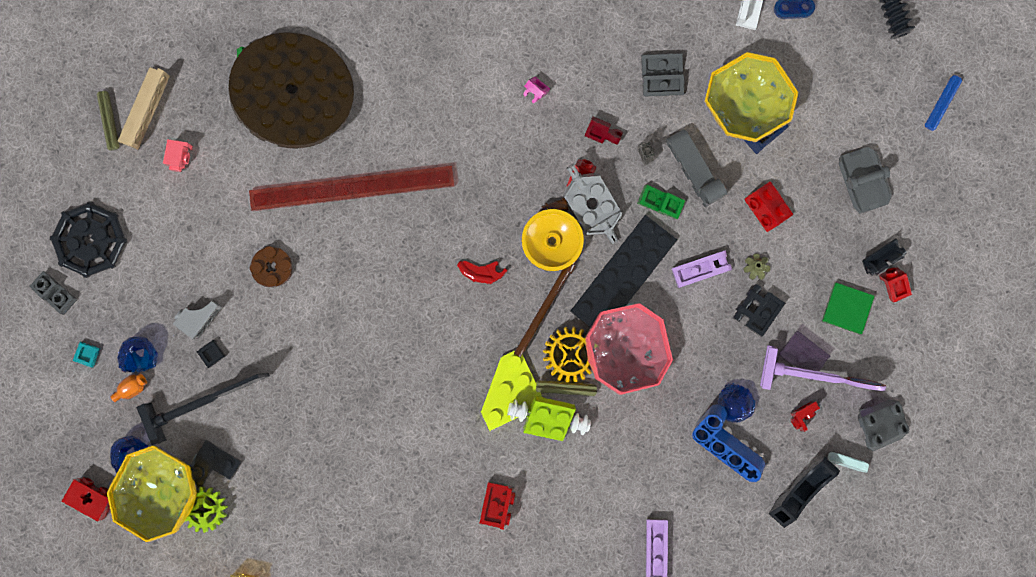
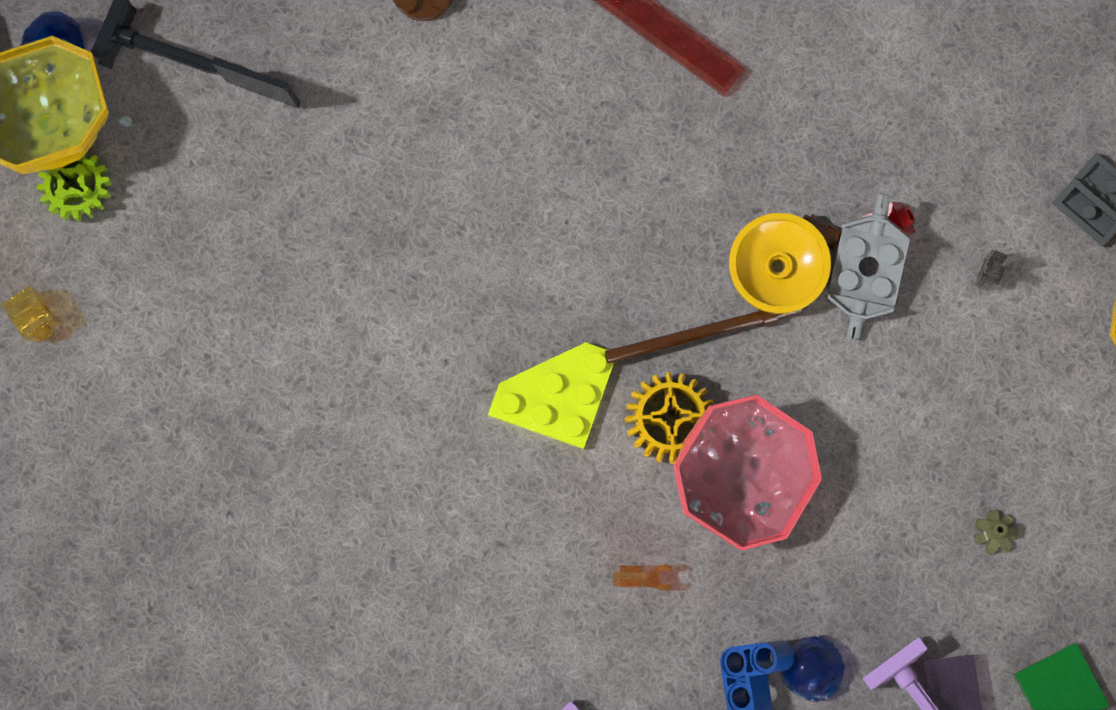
camera: 45 degrees right, 5 degrees down
(211, 354) = (257, 20): black tile -> none
(212, 458) = (139, 136): black plate -> none
(482, 274) = (656, 226): red piece -> none
(496, 505) = (410, 508): red bracket -> none
(537, 87) = (932, 72): dark pink tile -> none
(549, 418) = (572, 465): lime plate -> none
(566, 388) = (626, 452): olive axle -> none
(599, 131) = (959, 193): dark red plate -> none
(622, 440) = (633, 578): none -> clear orange plate
(625, 271) = (835, 383): black plate -> none
(661, 202) = (953, 346): green slope -> none
(696, 168) = (1033, 345): dark grey beam -> none
(700, 269) = (925, 469): lavender plate -> none
(763, 315) = (948, 596): black plate -> none
(768, 206) = (1080, 474): red bracket -> none

